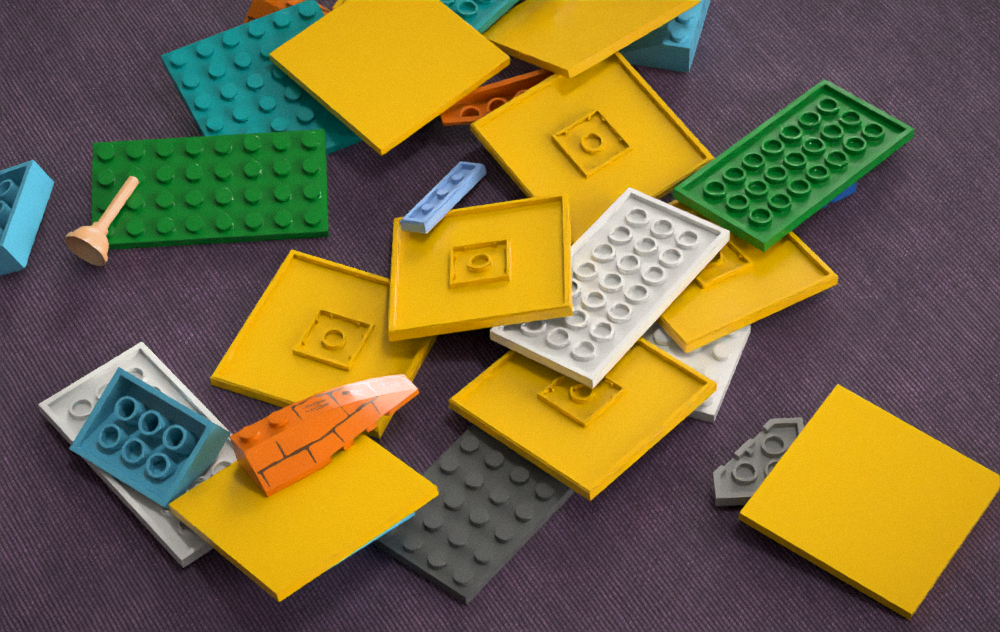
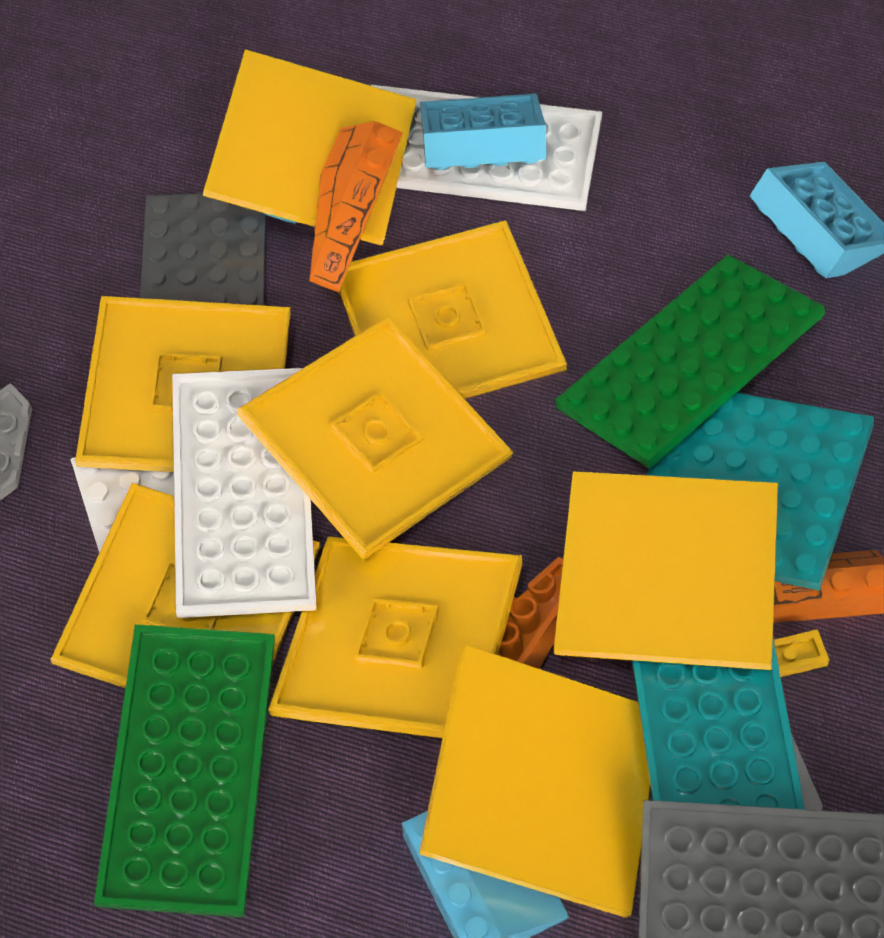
camera: 140 degrees right, 10 degrees up
(91, 241) = (721, 240): light nougat piece -> none
(443, 197) = (485, 491): light blue tile -> none

